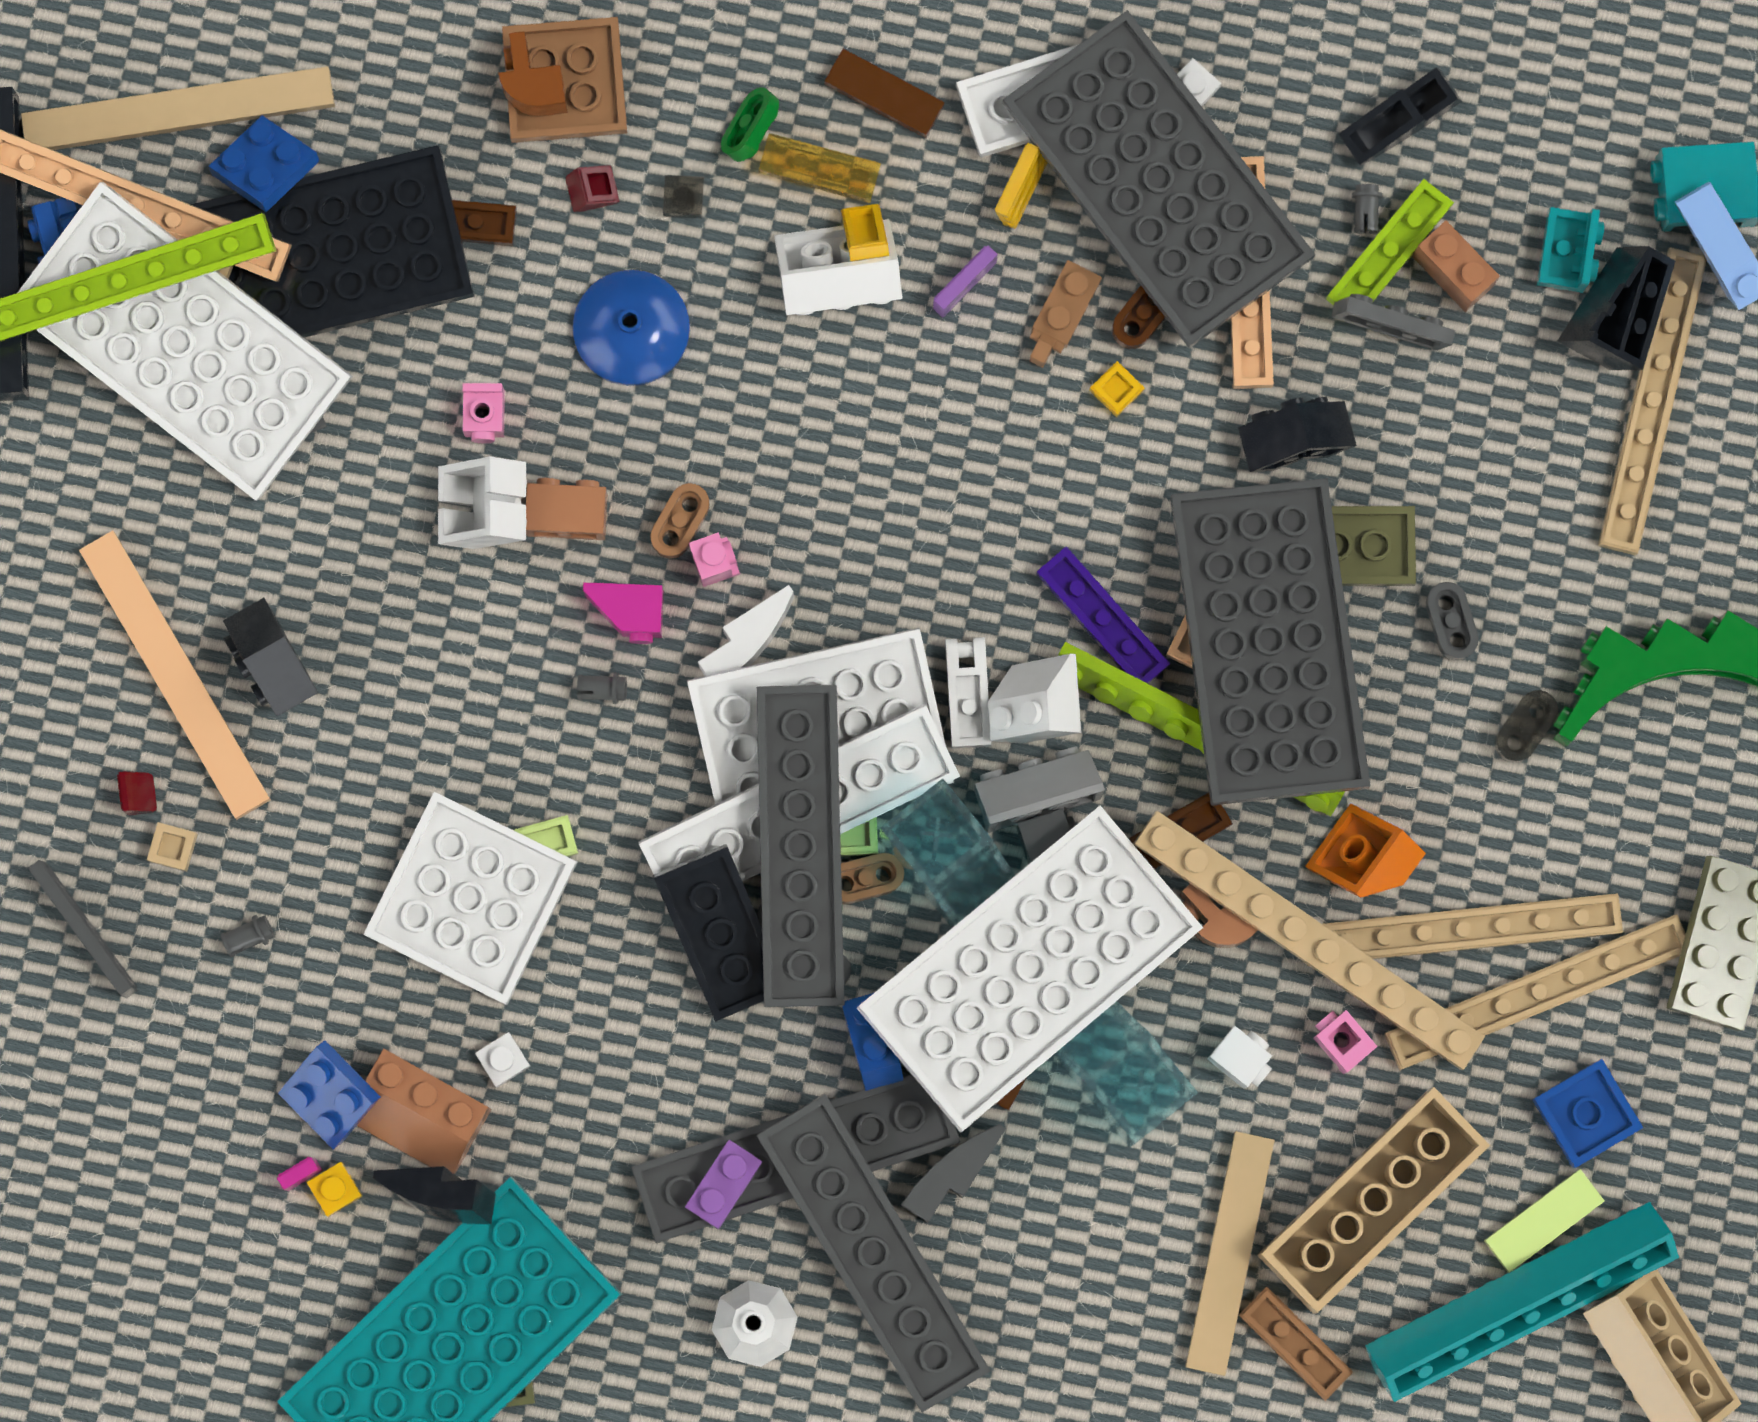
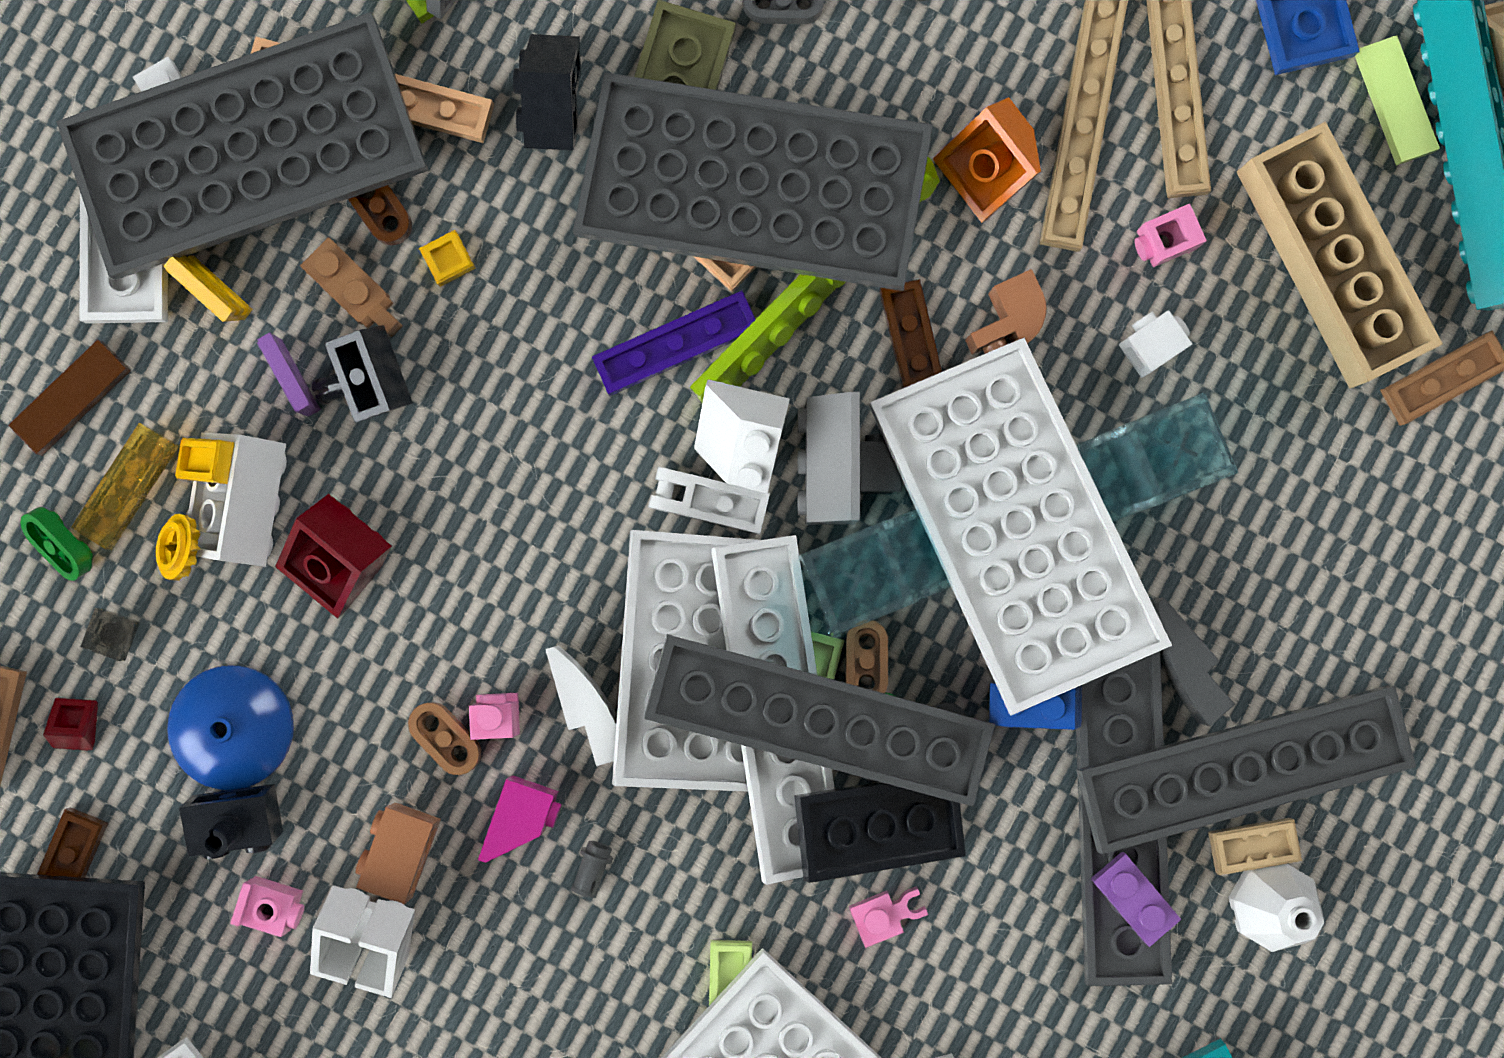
camera: 70 degrees left, 5 degrees up
(550, 355) = (231, 821): none -> black brick
(635, 963) = (880, 918): none -> bright pink plate
(793, 228) = (177, 547): none -> yellow gear
(803, 1286) = (1255, 846): none -> tan plate
(814, 370) = (332, 554): none -> dark red slope
(986, 349) = (364, 374): none -> black brick
(1229, 1253) = (1341, 414): tan tile -> none
(1309, 940) = (1062, 239): tan plate -> none

